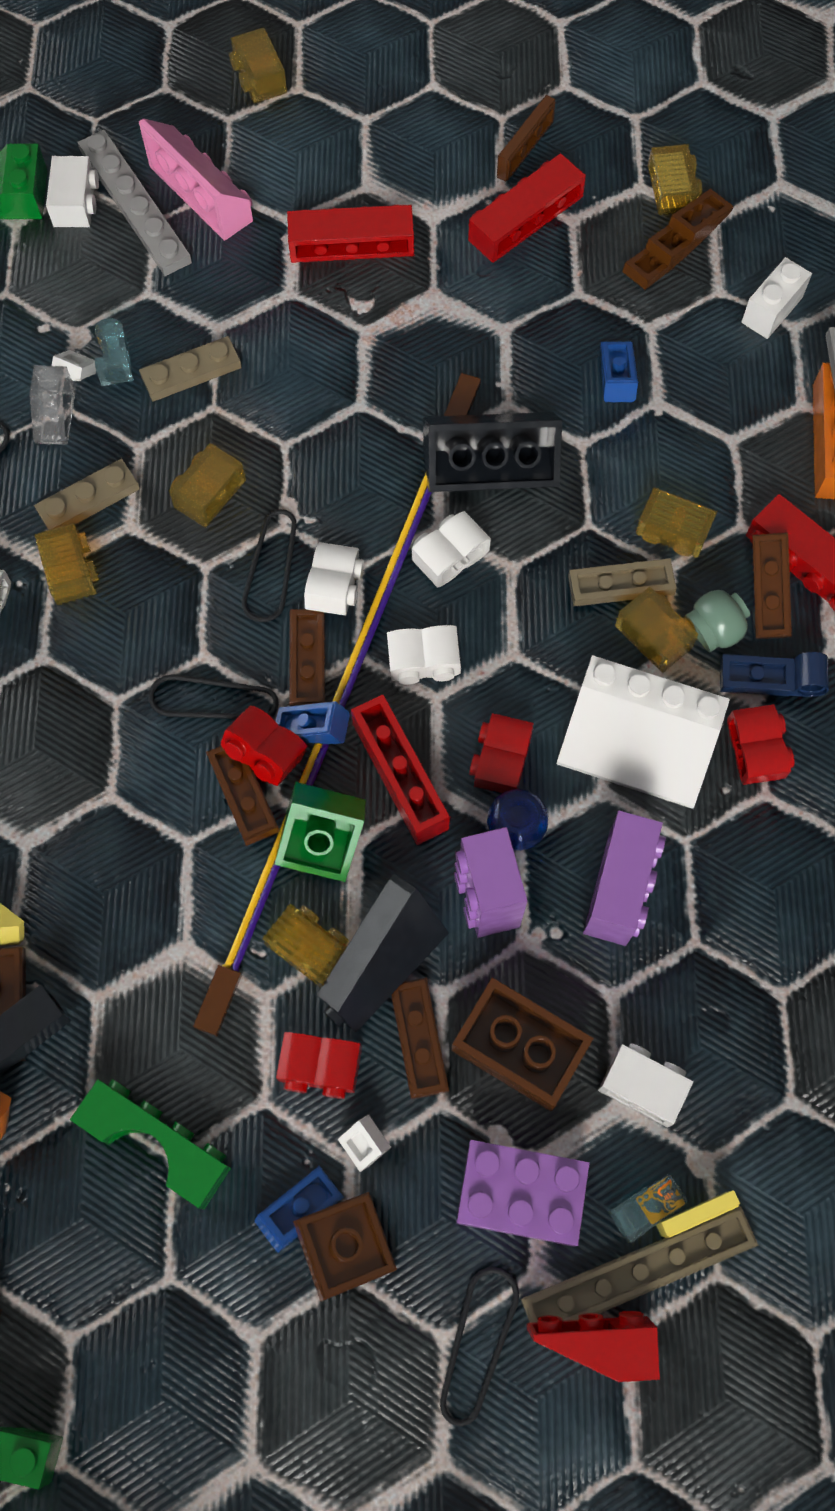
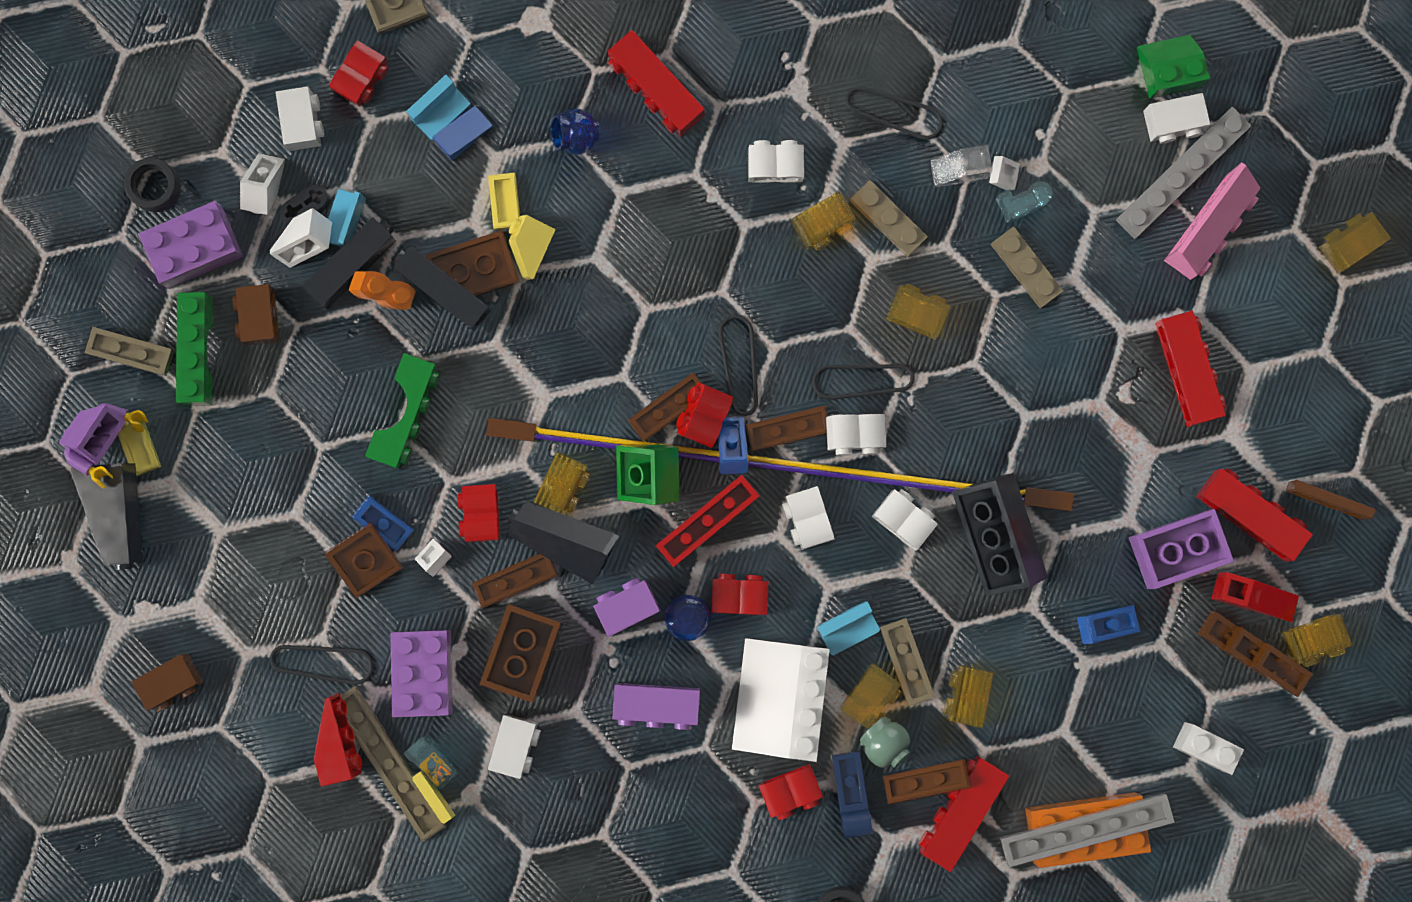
camera: 75 degrees right, 15 degrees up
(549, 277) = (1181, 549): none -> medium lavender brick
(566, 639) = (848, 628): none -> medium azure panel
(613, 226) = (1255, 596): none -> red slope

